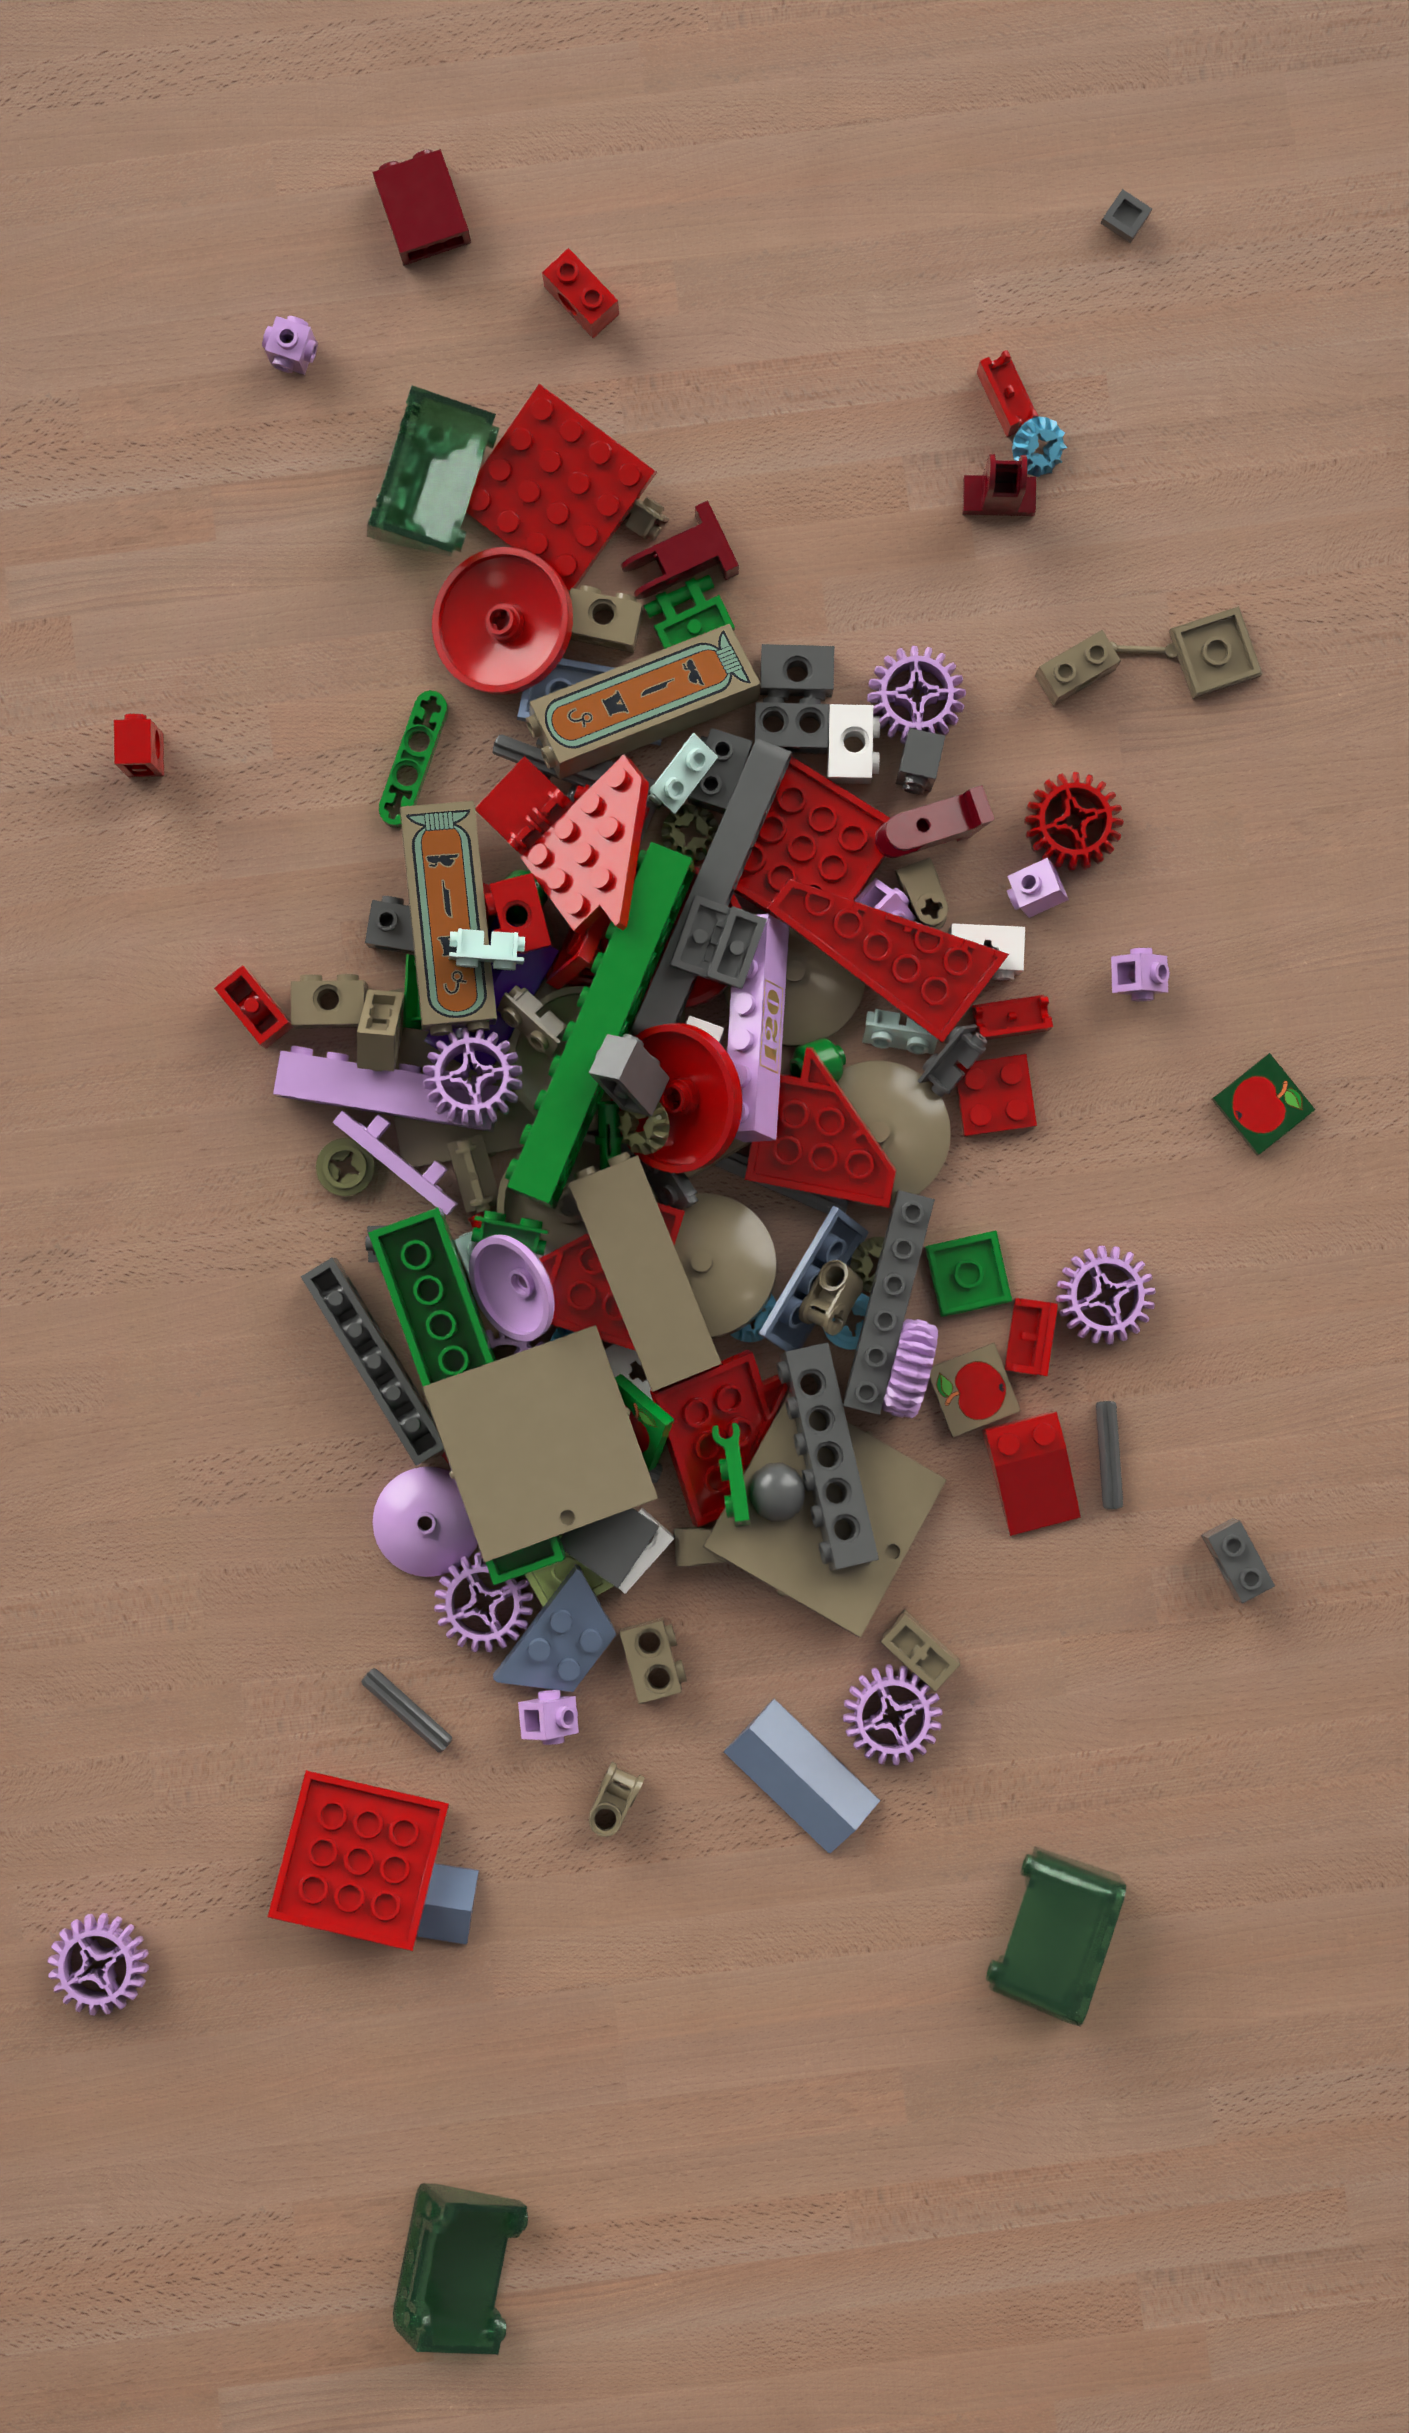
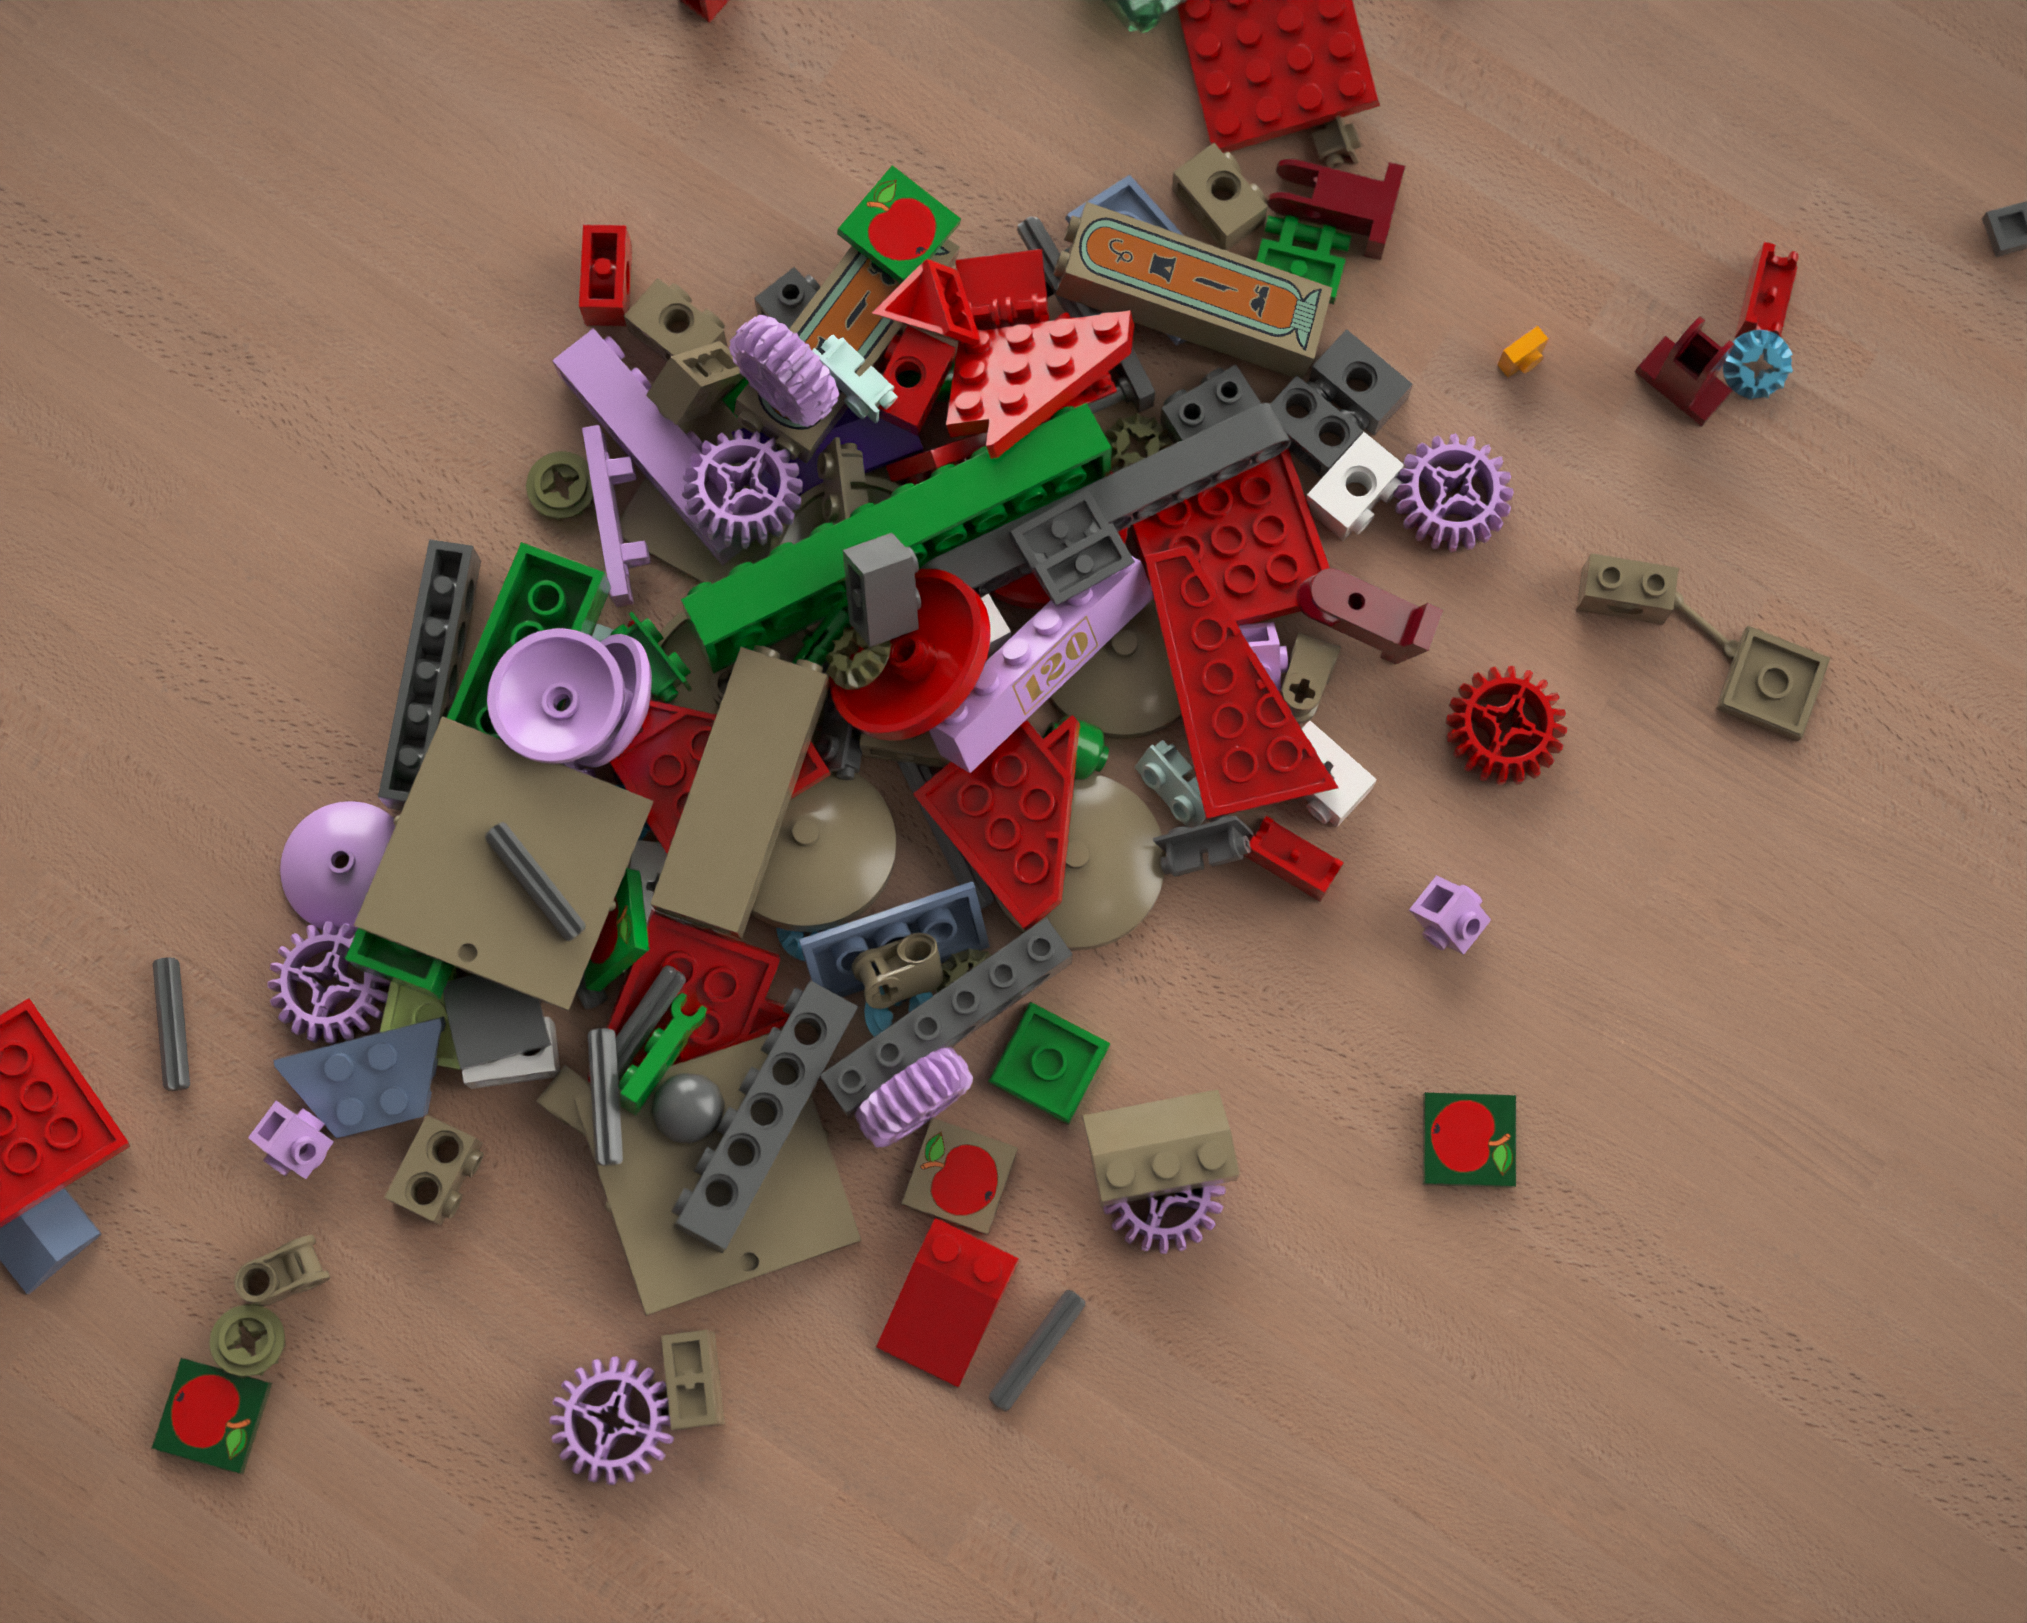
camera: 40 degrees right, 10 degrees down
(408, 757) = (951, 190): green beam -> none
(425, 821) = (898, 225): none -> tile
(443, 984) = (784, 370): none -> lavender gear
(457, 1317) = (541, 674): none -> lavender dish
(474, 1173) = (672, 580): dark tan hinge -> none
(493, 855) = (932, 302): none -> red slope
(502, 621) = (1126, 123): red dish -> none
(571, 1439) = (535, 881): none -> dark grey axle
(623, 1841) = (257, 1322): none -> olive gear
(646, 1918) = (211, 1416): none -> tile
(683, 774) = (1172, 379): light aqua hinge -> none
(704, 1468) = (647, 1016): none -> dark grey axle
(723, 1530) = (605, 1097): none -> dark grey axle
(802, 1776) = (478, 1407): sand blue slope -> none
(885, 564) = (1523, 353): none -> light orange plate
(920, 761) = (1405, 549): dark grey brick -> none
(996, 1096) = (1217, 918): red plate -> none
(1031, 1336) = (1054, 1173): red hinge -> none
(1036, 888) = (1418, 755): lavender brick -> none
(1087, 1272) = (1160, 1148): none -> dark tan slope
(1238, 1560) = (1074, 1558): dark grey brick -> none

